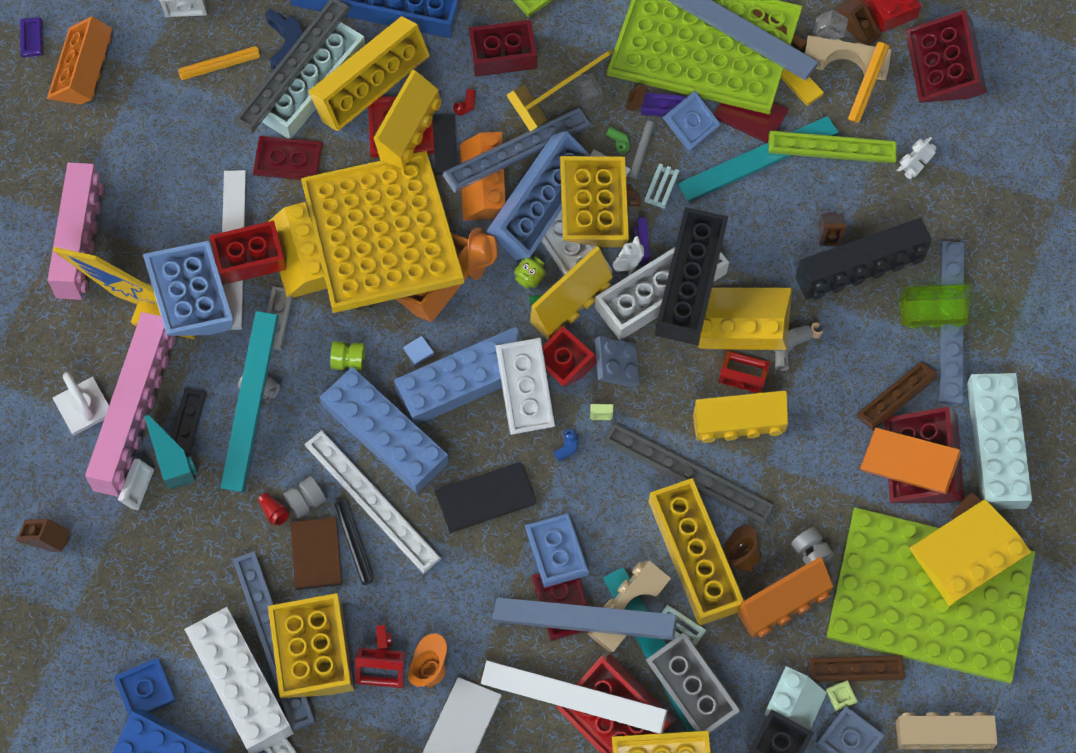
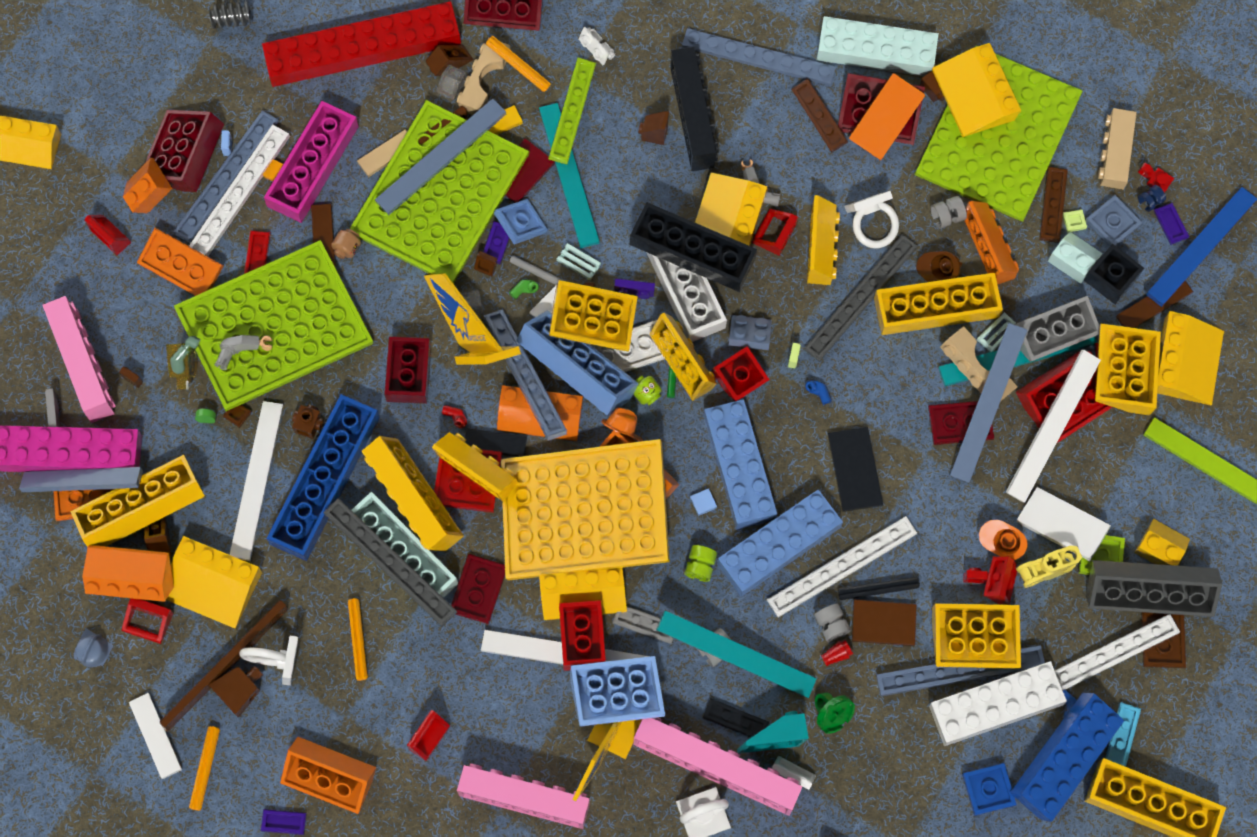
camera: 80 degrees left, 5 degrees up
(128, 142) = (428, 735): none -> red tile
(203, 511) = (833, 712): none -> green tile
(288, 29) = (352, 563): dark blue arch -> none
(397, 702) = (1049, 567): none -> light yellow piece
(525, 386) = (763, 412): white tile -> none
(556, 550) = (915, 417): medium blue tile -> none
(629, 257) = (652, 299): white hinge -> none
(795, 458) = (869, 206): none -> white tile
(936, 305) = (746, 62): clear neon green slope -> none

